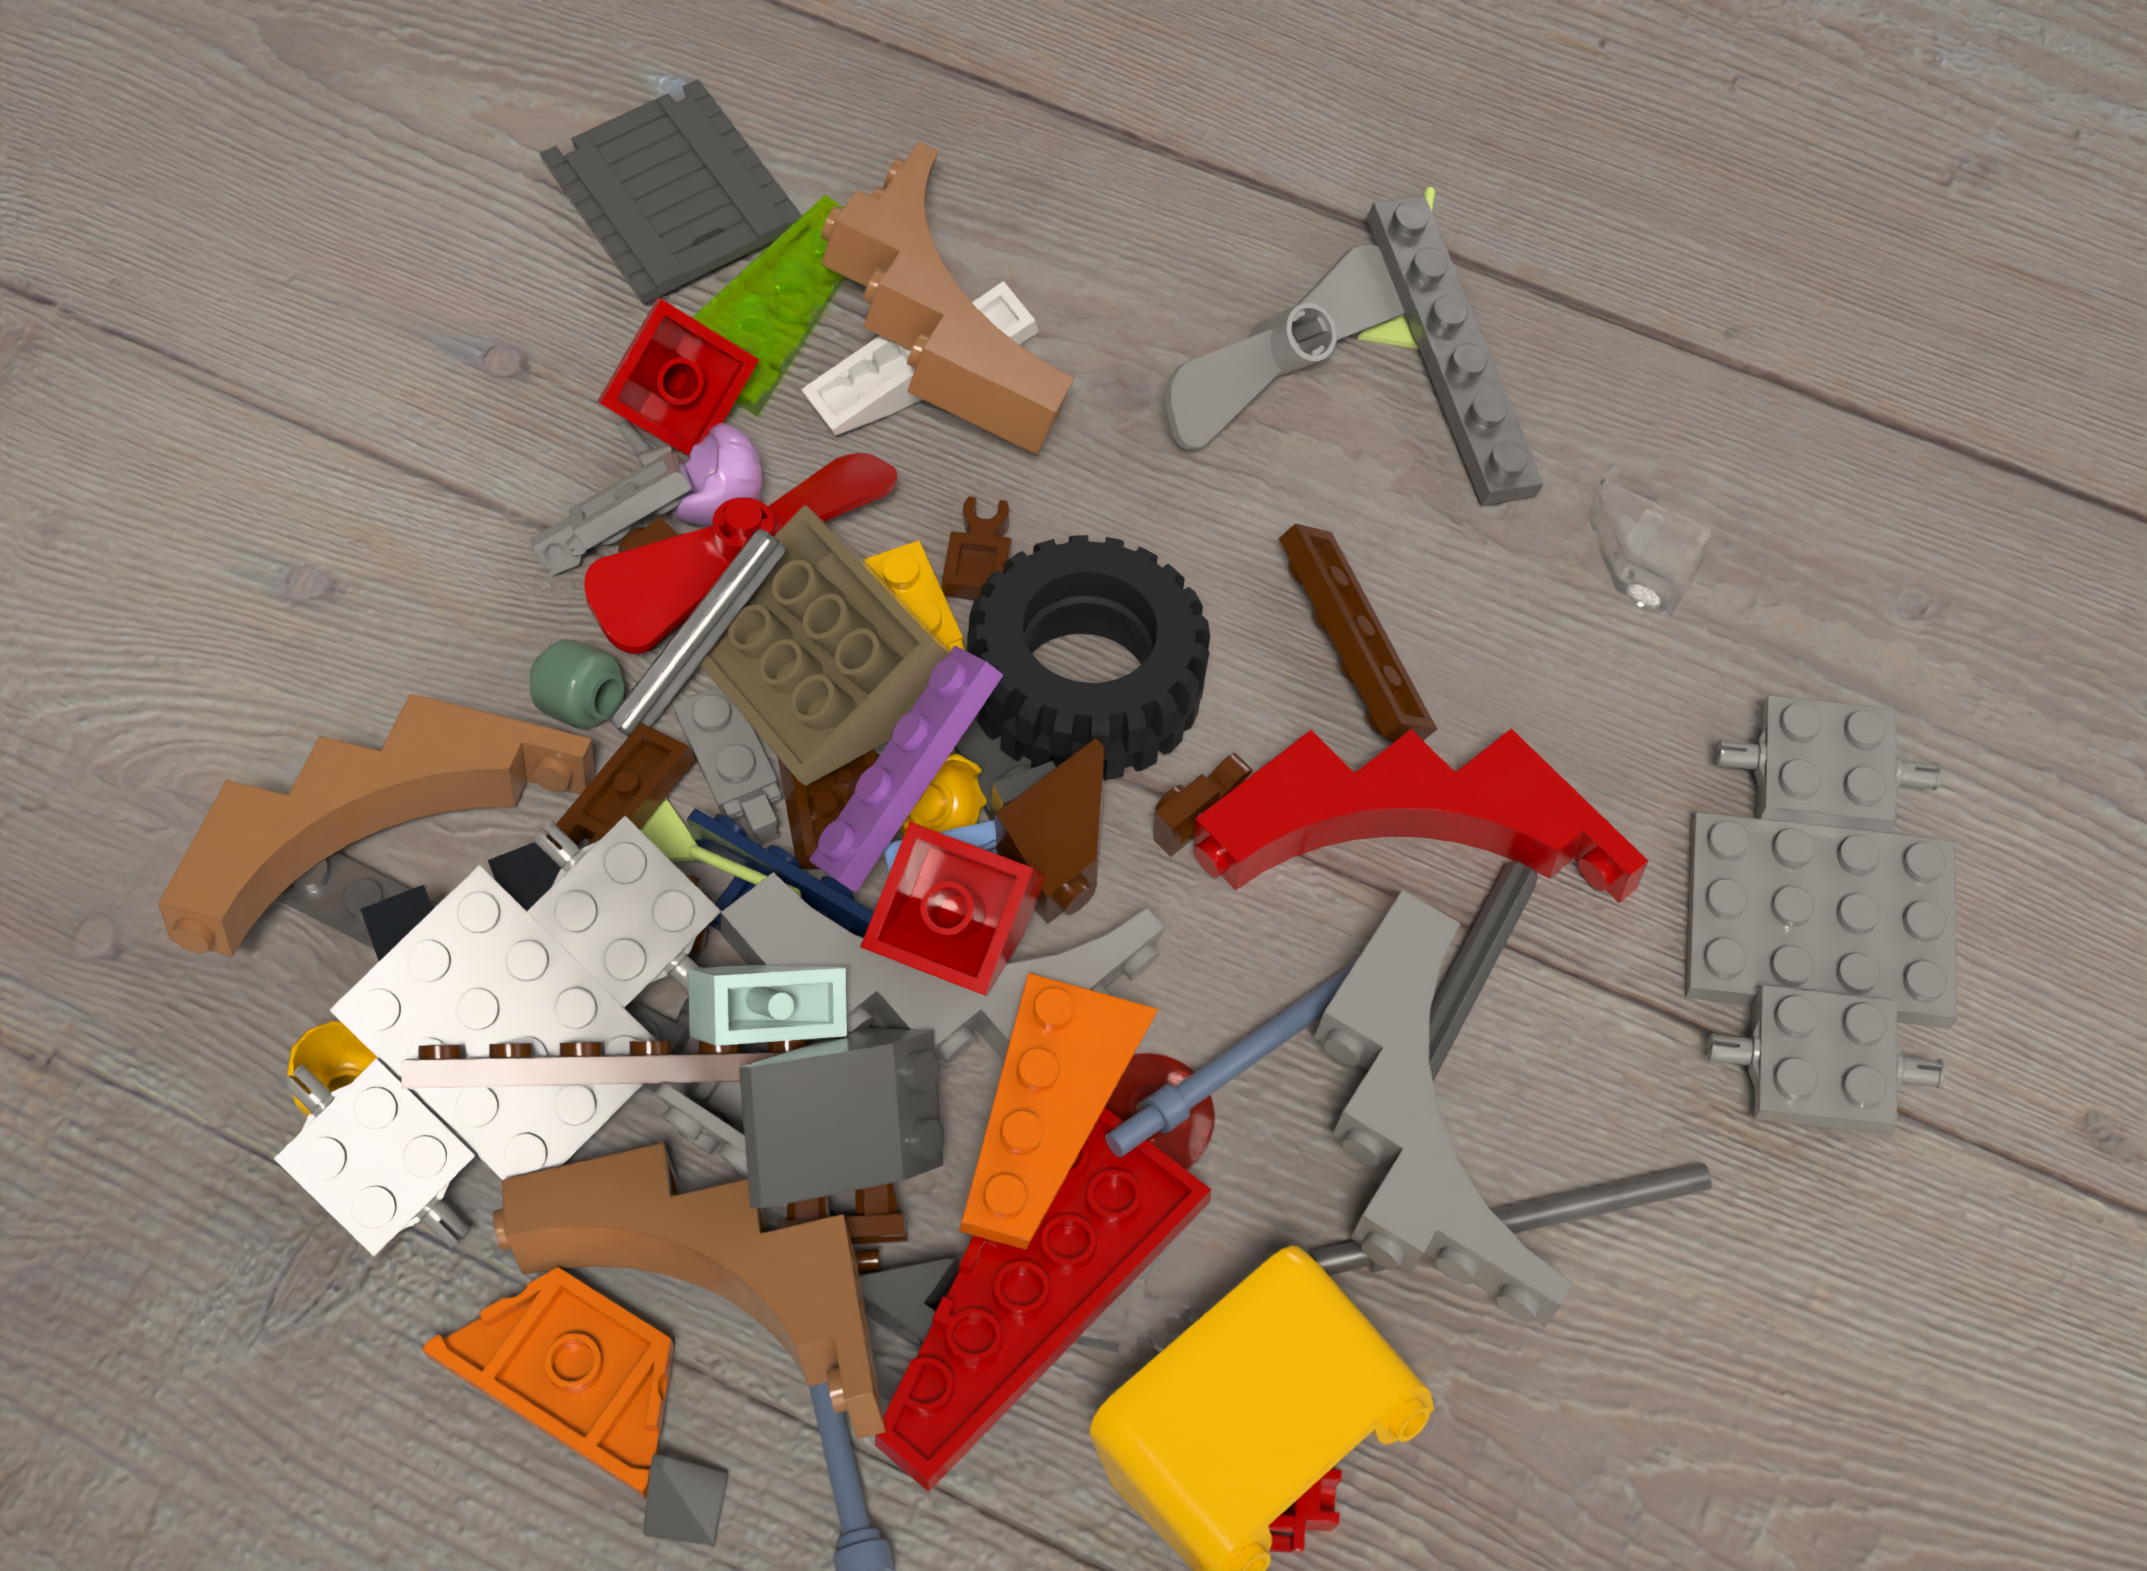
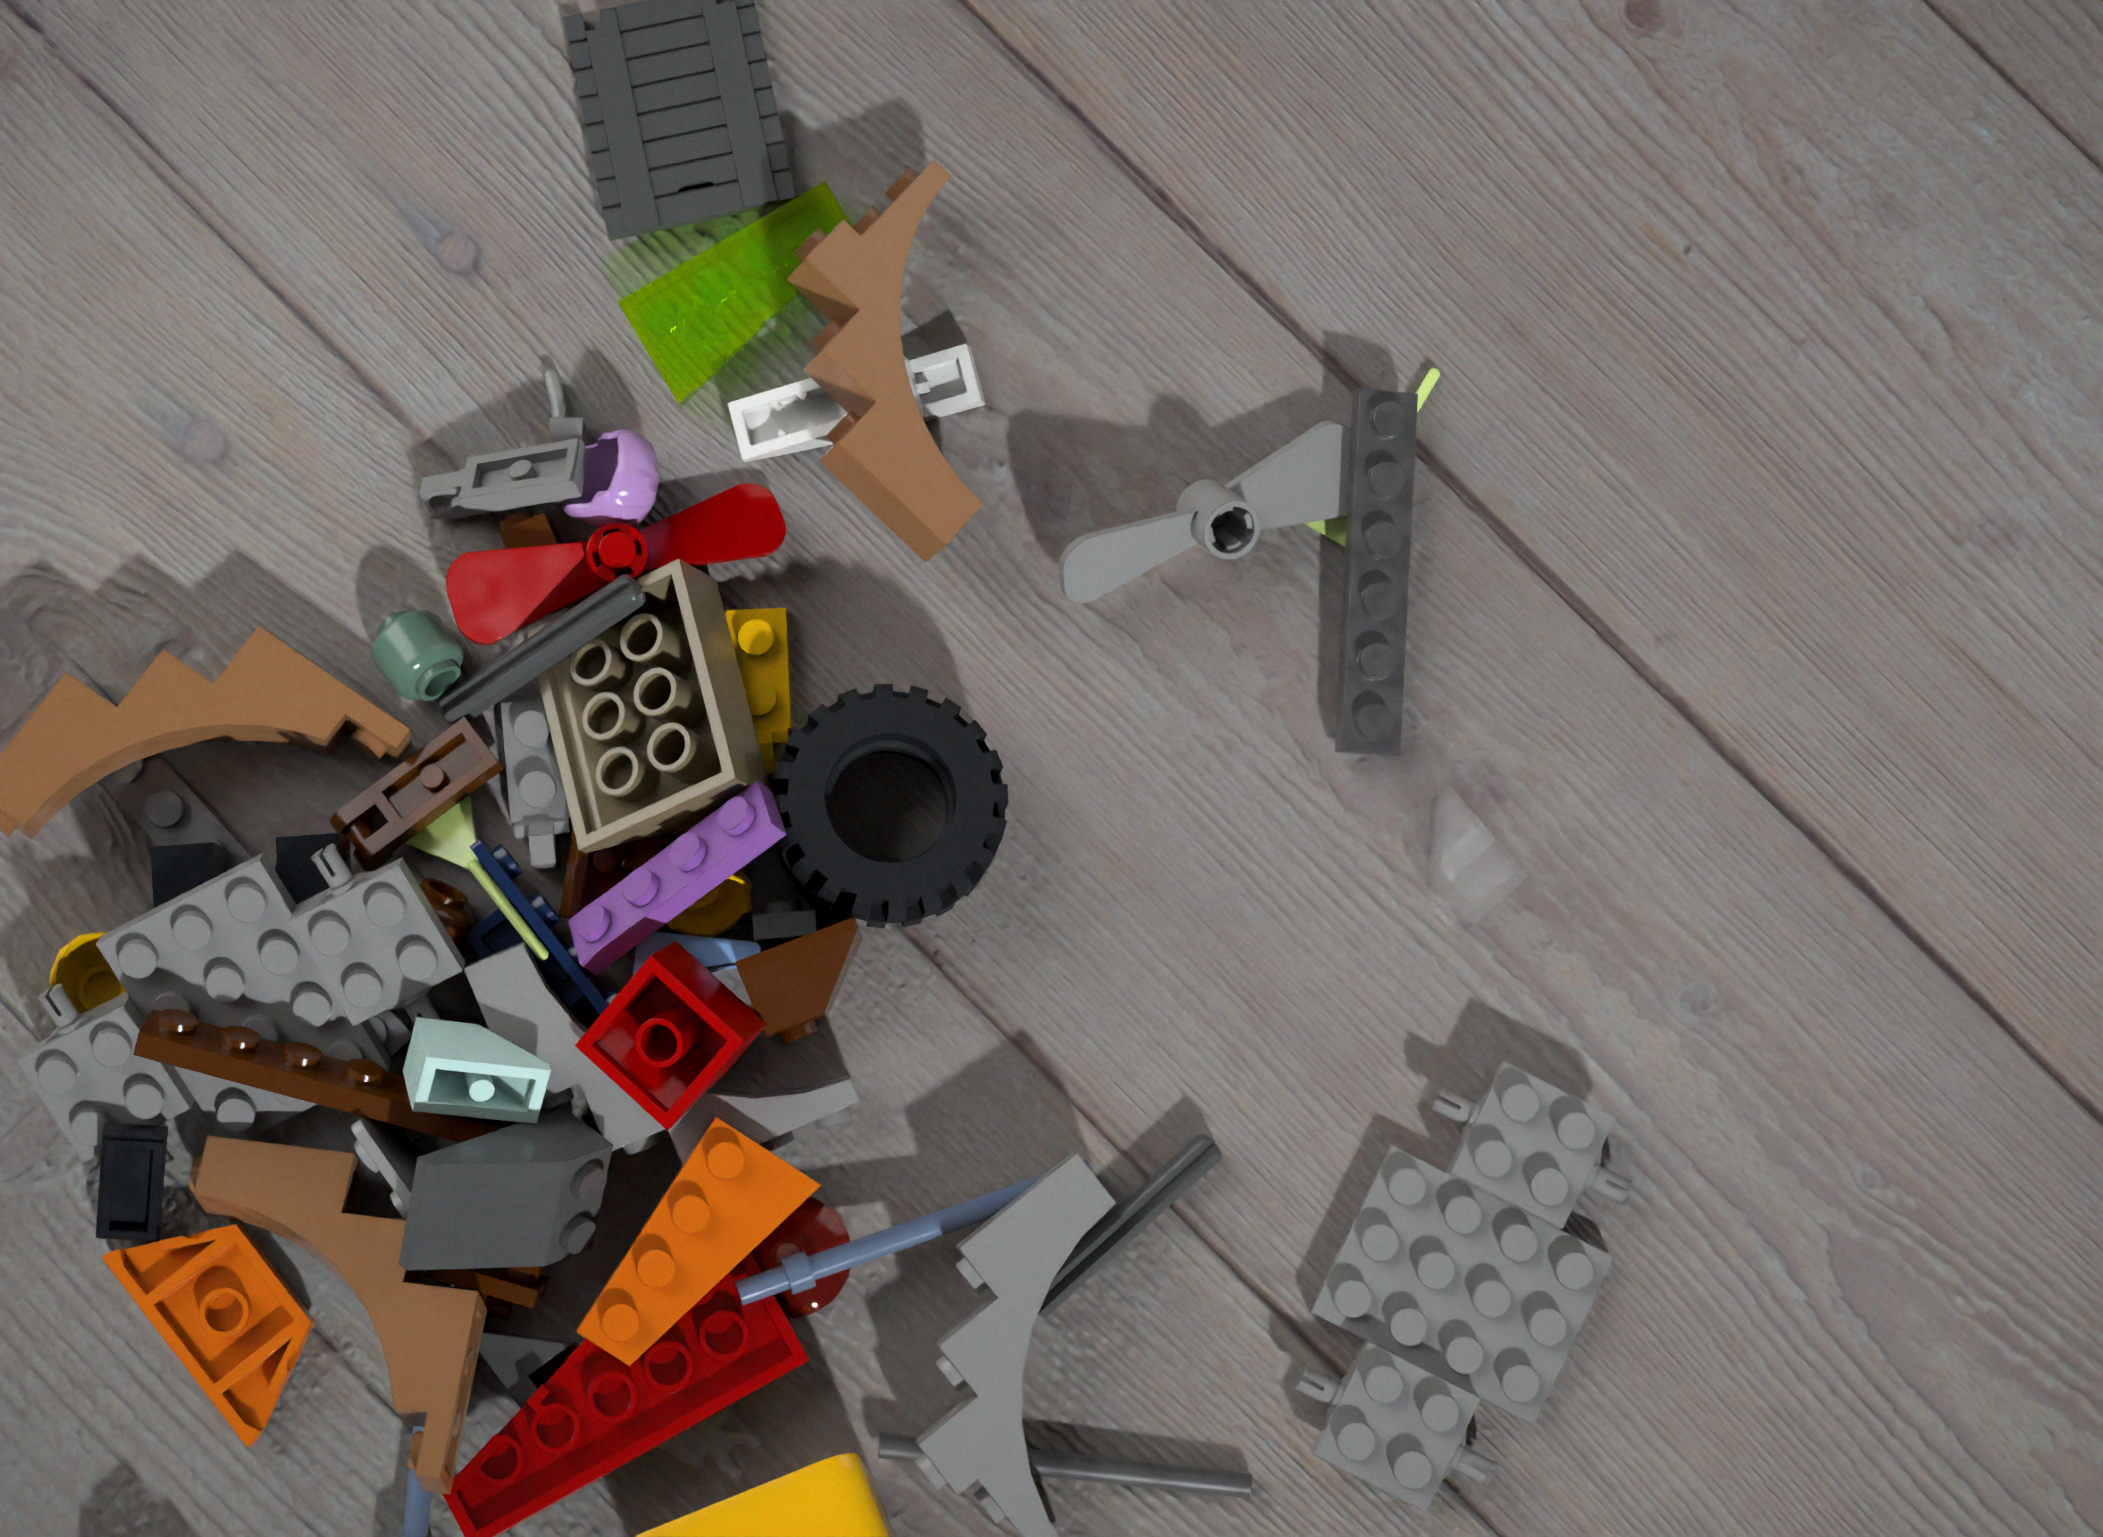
camera: 15 degrees right, 20 degrees up
(433, 1256) = (131, 1181): none -> black tile
(677, 378) = (610, 361): red slope -> none
(683, 1501) = (283, 1459): dark grey slope -> none
(976, 553) = (833, 649): reddish brown plate -> none
(1182, 805) = (929, 981): reddish brown plate -> none
(1356, 632) = (1156, 854): reddish brown plate -> none
(1496, 802) = (1215, 1072): red arch -> none

